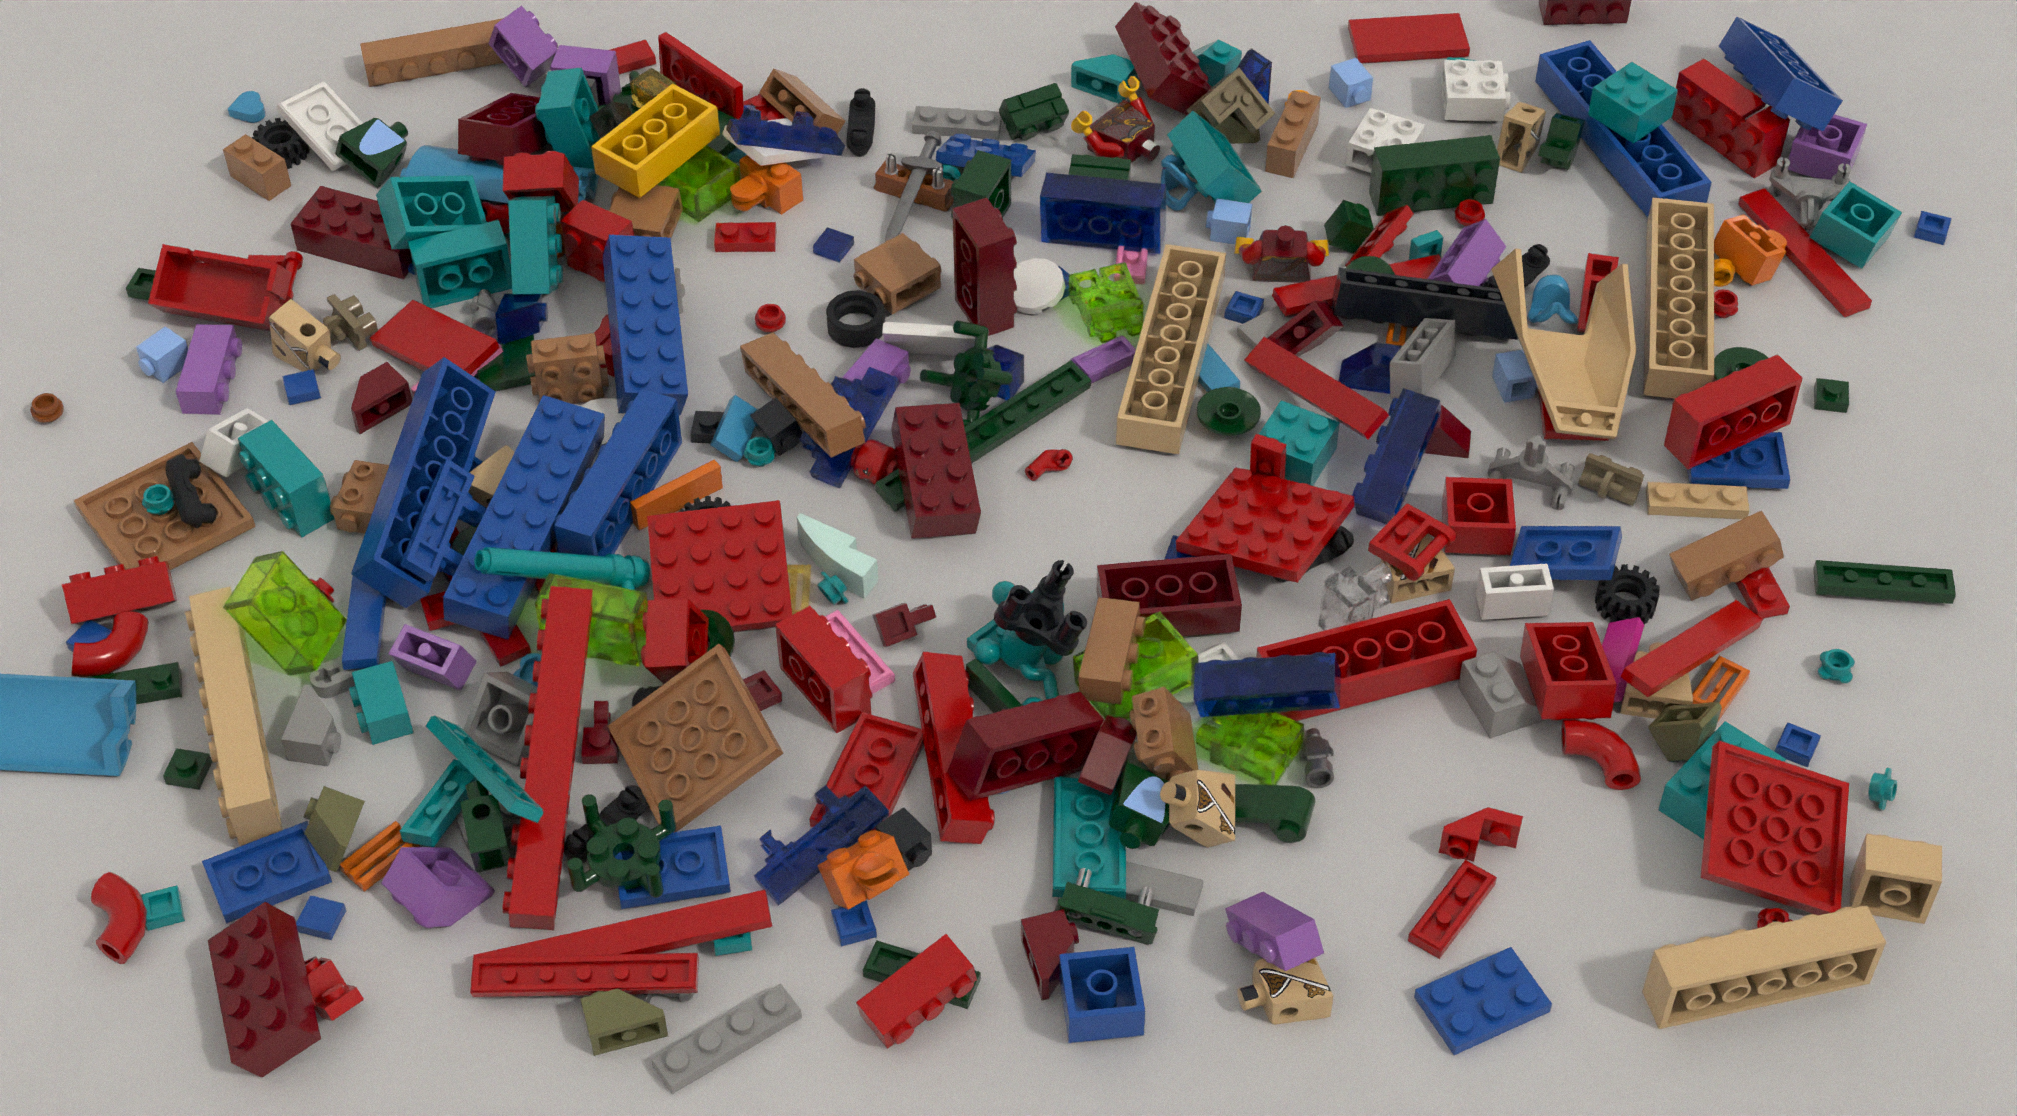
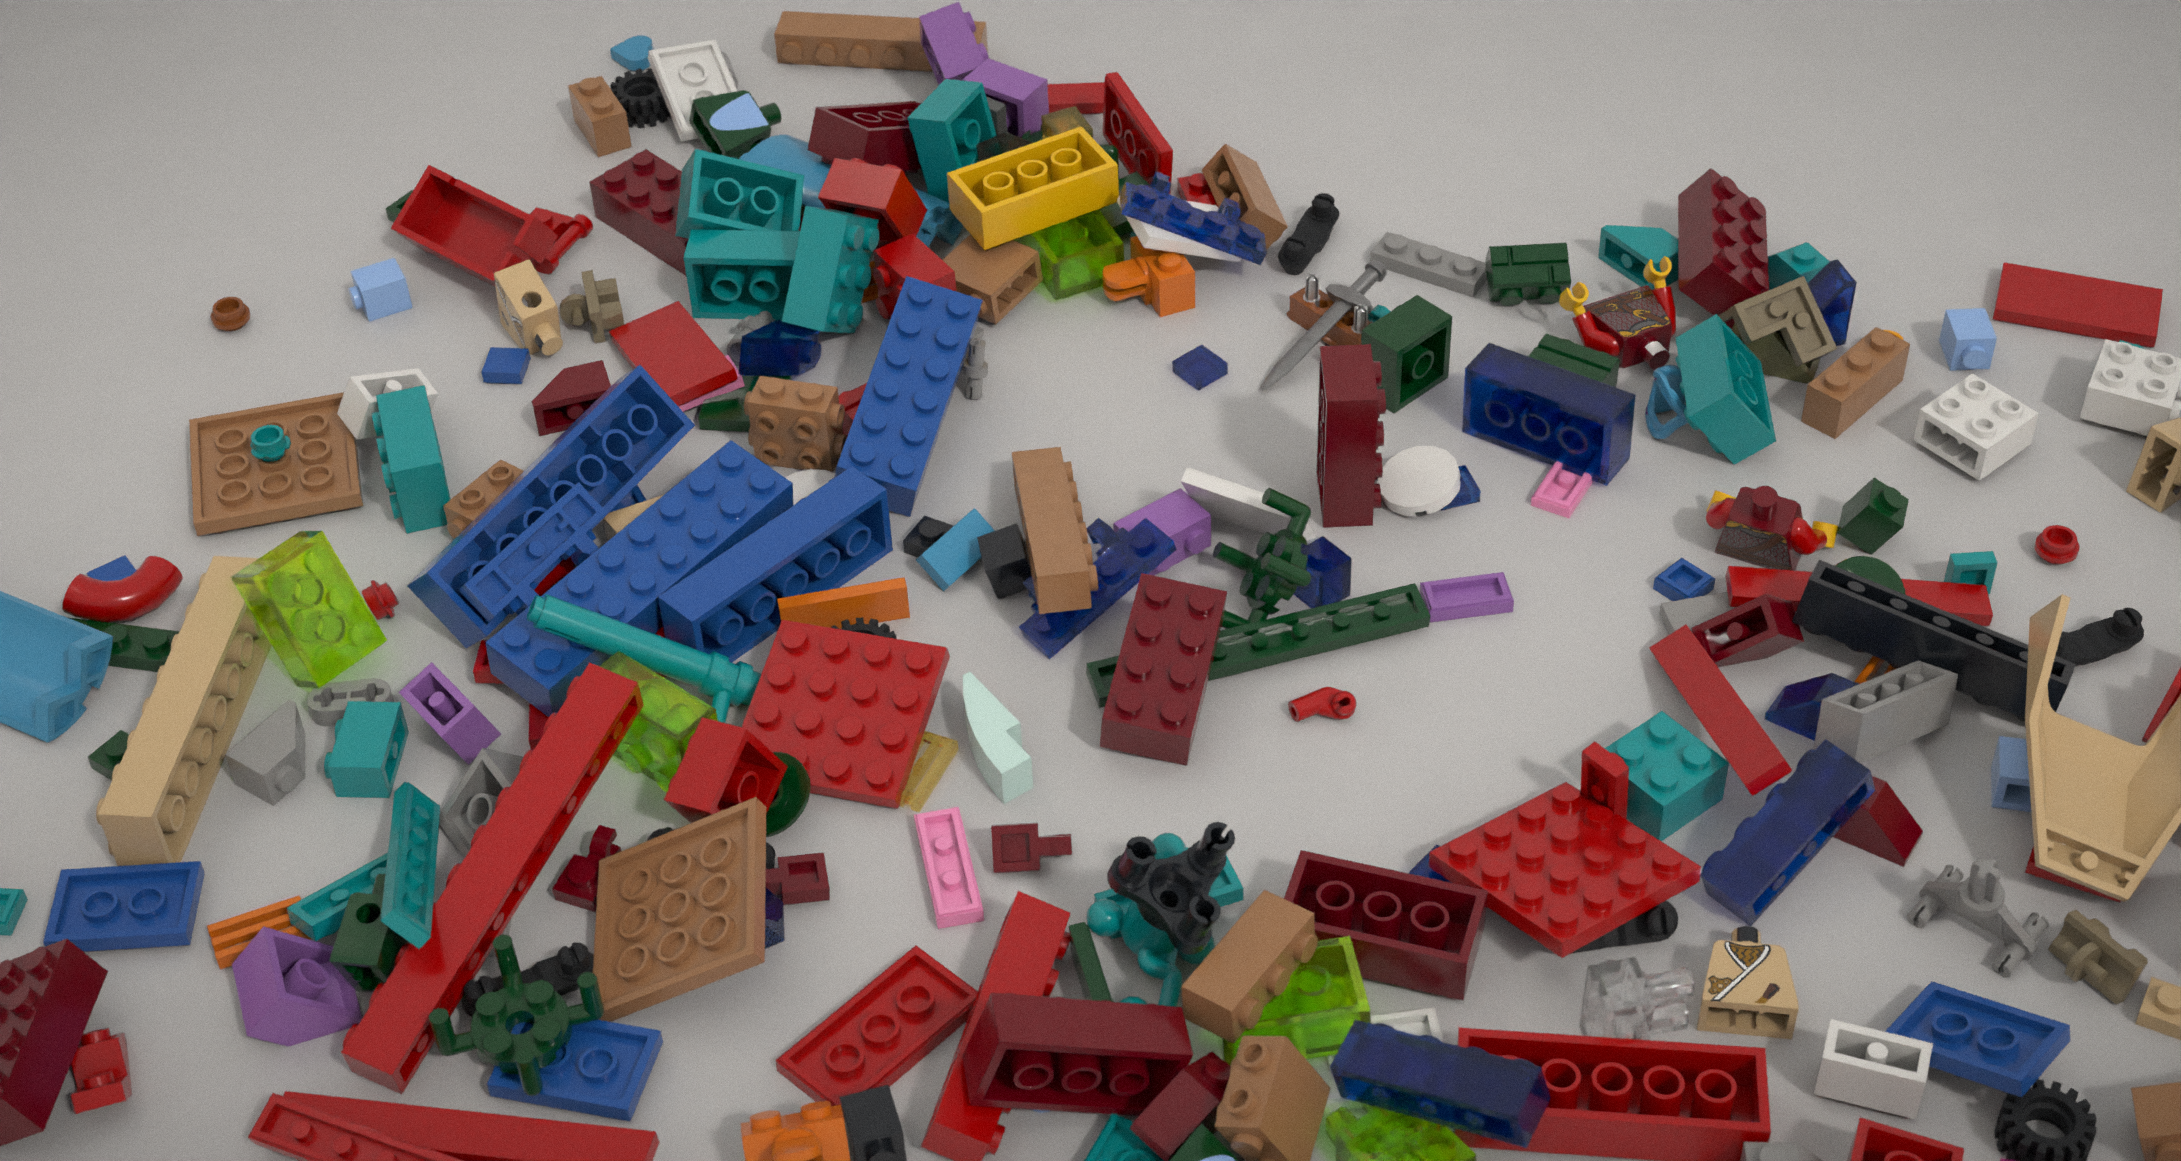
camera: 25 degrees right, 5 degrees down
(118, 590) = (167, 530): red brick -> none
(190, 508) = (293, 466): black piece -> none
(208, 369) = (416, 318): medium lavender brick -> none
(320, 917) = (151, 983): blue tile -> none
(332, 824) = (221, 875): olive slope -> none
(363, 626) = (398, 657): blue tile -> none
(745, 237) = (1100, 331): red plate -> none
(759, 451) = (972, 586): teal plate -> none
(770, 318) = (1074, 431): red plate -> none
(797, 862) = (717, 1109): clear blue hinge -> none
(824, 668) = (890, 873): red brick -> none
(832, 588) = (965, 778): teal plate -> none
(855, 302) = (1173, 440): black tyre -> none
(873, 461) = (1098, 634): red head -> none
(897, 273) = (1253, 419): medium nougat brick -> none
(961, 148) = (1469, 322): blue plate -> none
(1107, 304) = (1499, 538): clear neon green hips -> none
(1171, 349) = (1551, 607): tan brick -> none
(1215, 372) = (1599, 650): dark azure tile -> none
(1228, 411) = (1592, 706): dark green dish -> none
(1229, 221) = (1716, 467): light blue brick -> none
(1384, 233) = (1914, 544): red plate -> none
(1403, 535) = (1745, 937): red plate -> none
(1434, 174) = (2022, 480): dark green brick -> none
(1470, 256) = (2018, 596): medium lavender brick -> none
(1480, 515) = (1870, 947): red brick -> none
(1551, 297) = (2123, 683): dark azure piece -> none

